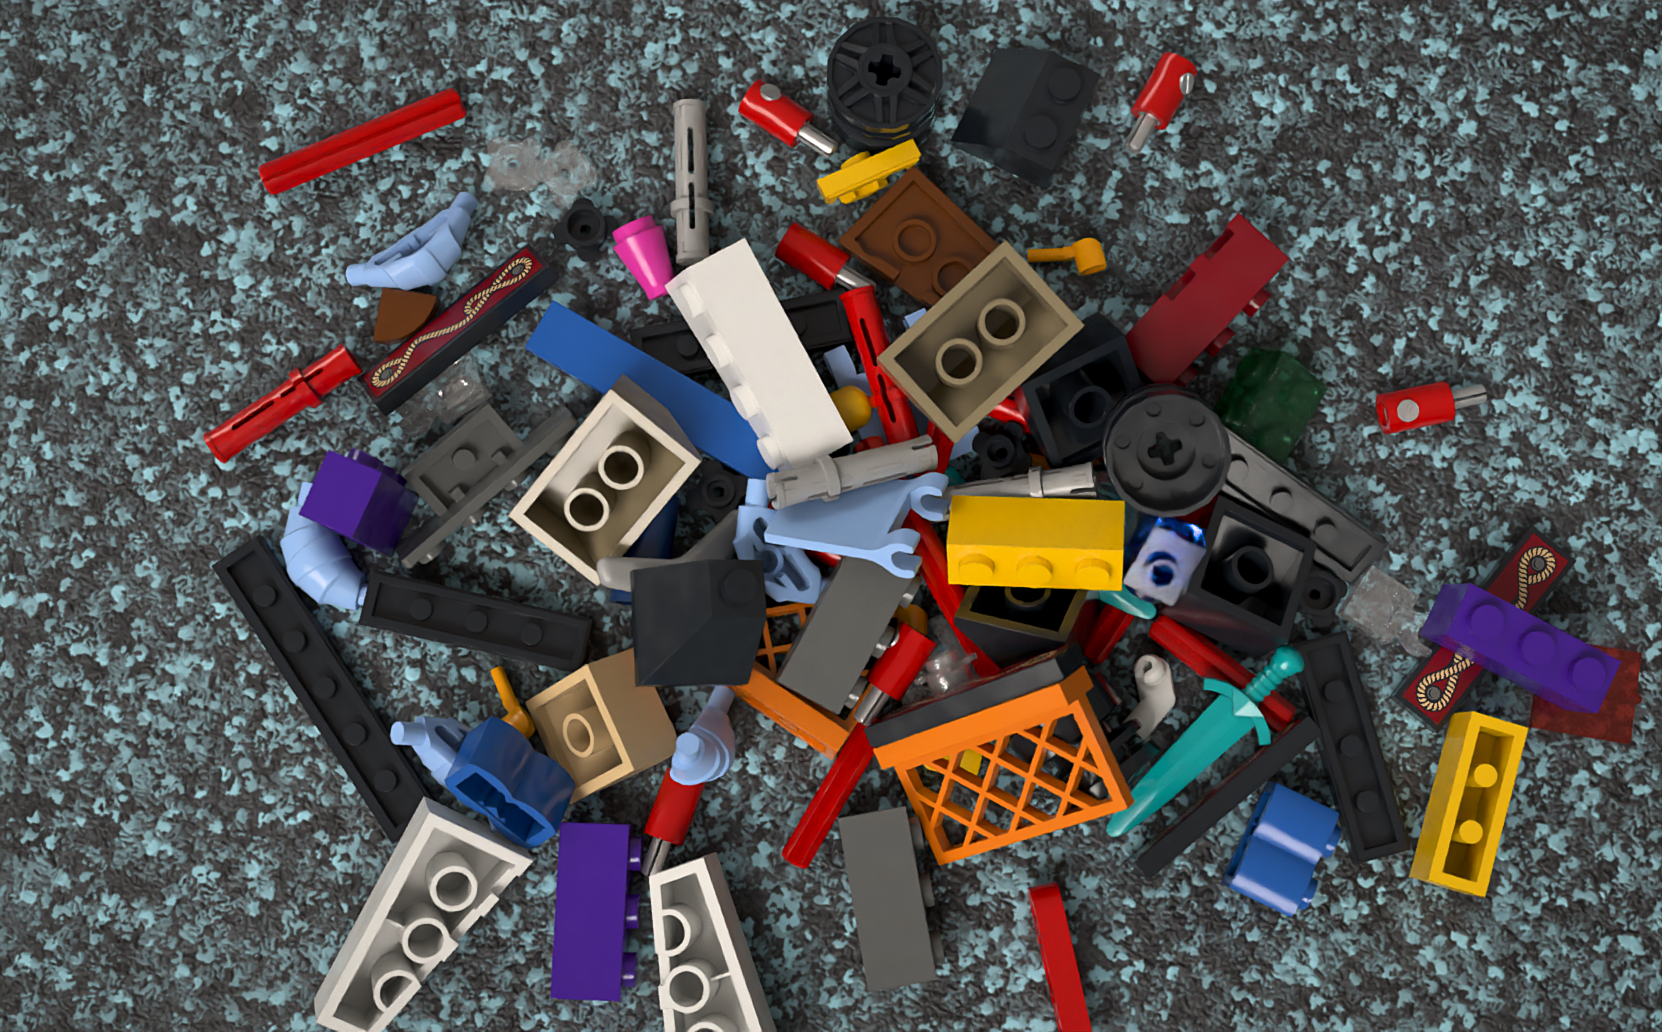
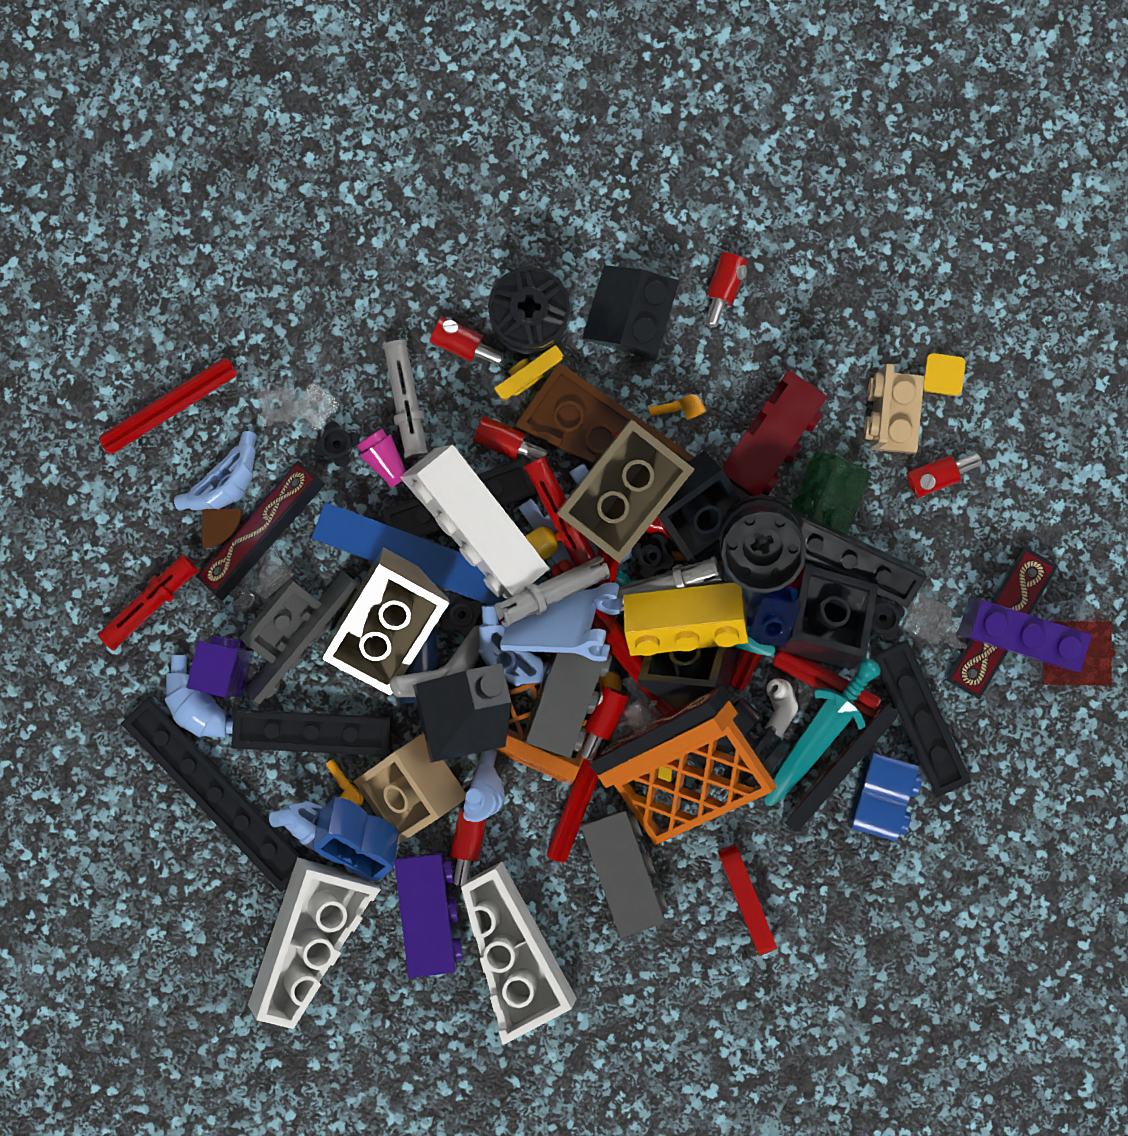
camera: 10 degrees left, 5 degrees up
(1373, 306) = (895, 412): none -> tan bracket
(1447, 270) = (944, 374): none -> yellow piece
(1468, 803) = (1004, 745): yellow brick -> none

